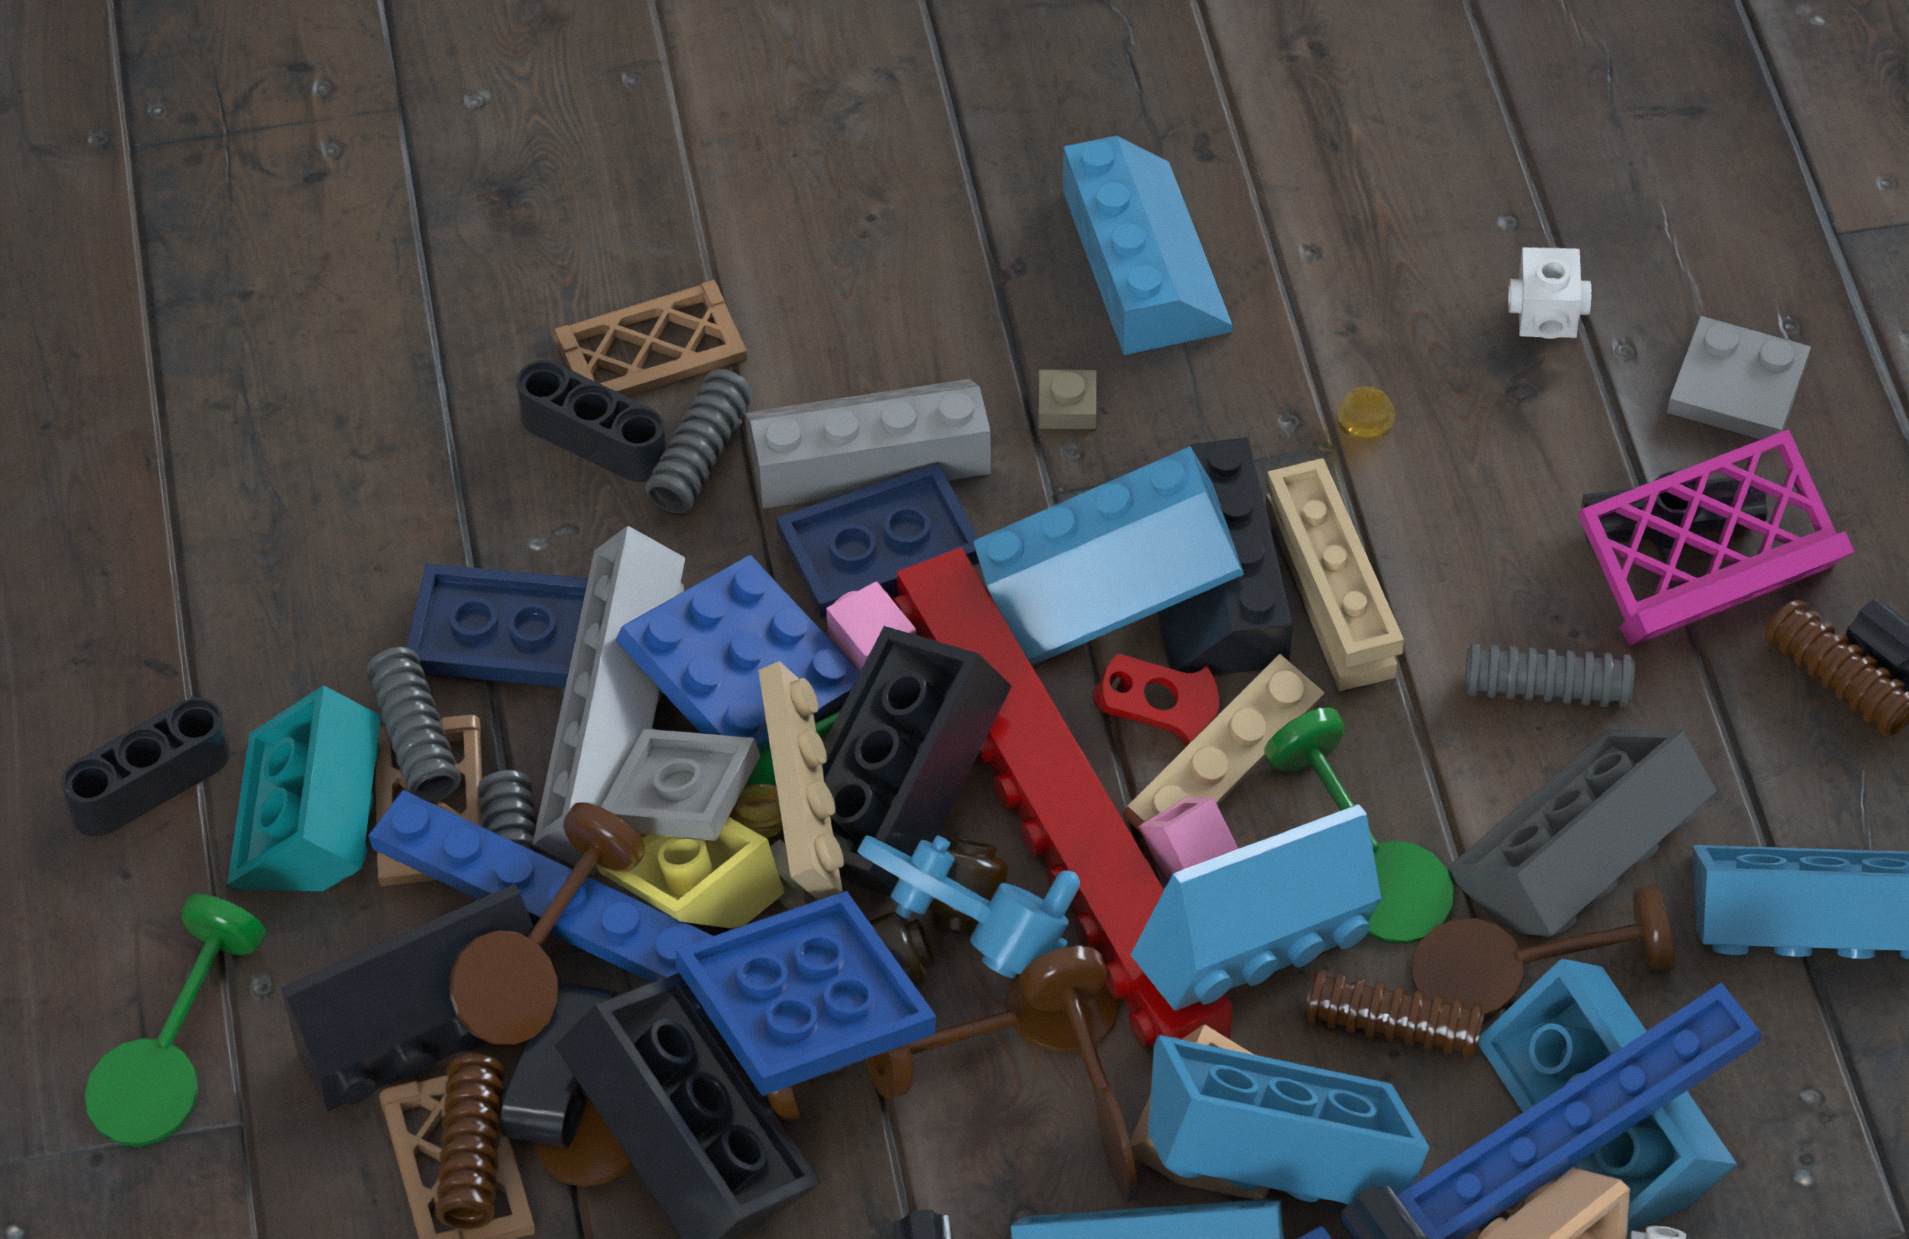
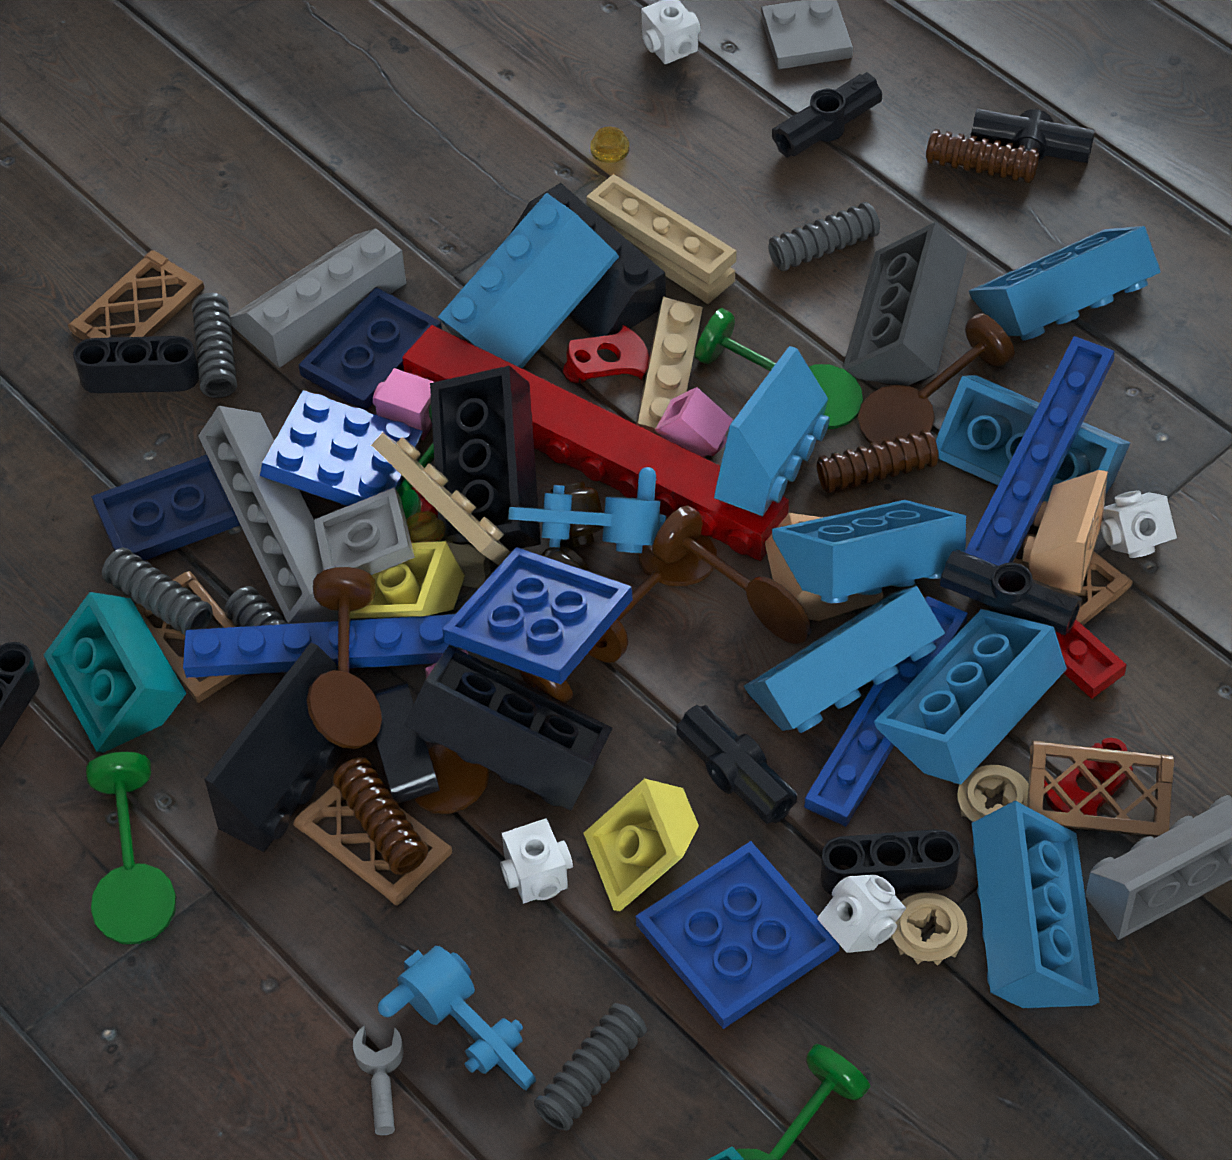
camera: 30 degrees left, 0 degrees up
(1067, 399) = (423, 218): dark tan plate -> none
(1141, 245) = (403, 114): dark azure slope -> none
(1730, 585) = (883, 144): dark pink fence -> none

